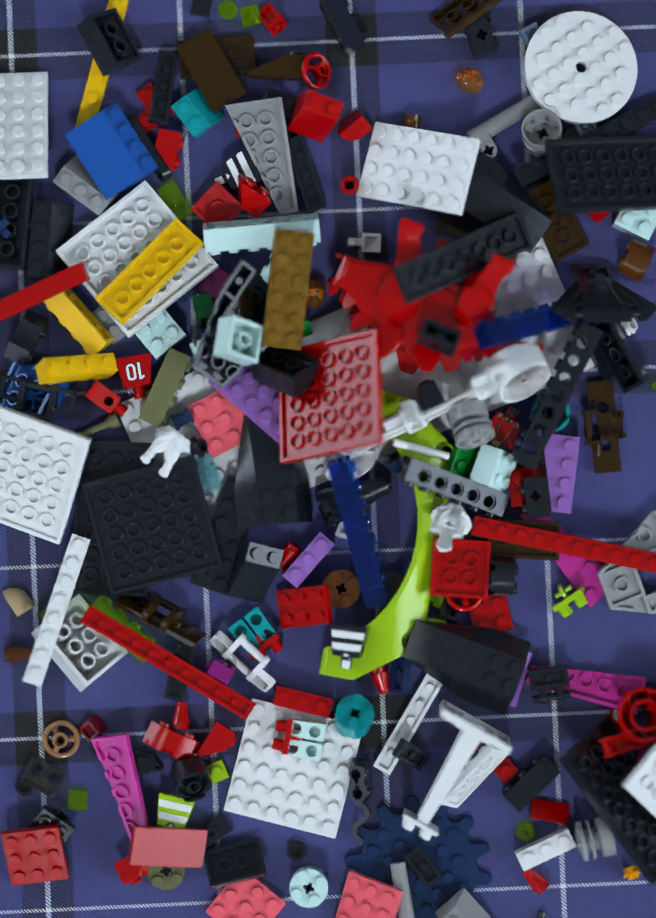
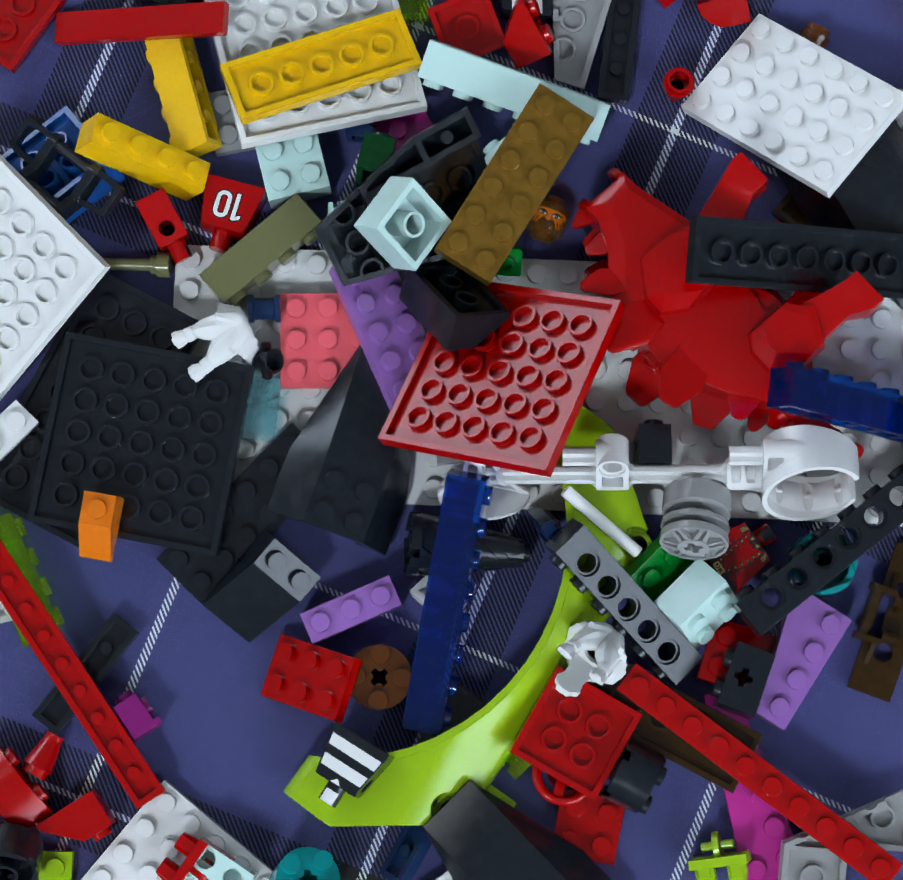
camera: 25 degrees right, 5 degrees down
(26, 338) = (94, 84): black brick -> none
(152, 580) = (99, 525): none -> orange slope
(171, 624) = (70, 577): dark brown piece -> none
(226, 649) = (162, 685): white bar -> none
(263, 635) = (219, 696): teal hips -> none
(291, 552) = (327, 588): red cone -> none
(303, 701) = (238, 821): red brick -> none
(368, 242) = (666, 183): white plate -> none
(381, 679) = (373, 846): red cone -> none
(438, 337) = (712, 358): black brick -> none
(448, 613) = (524, 792): black plate -> none

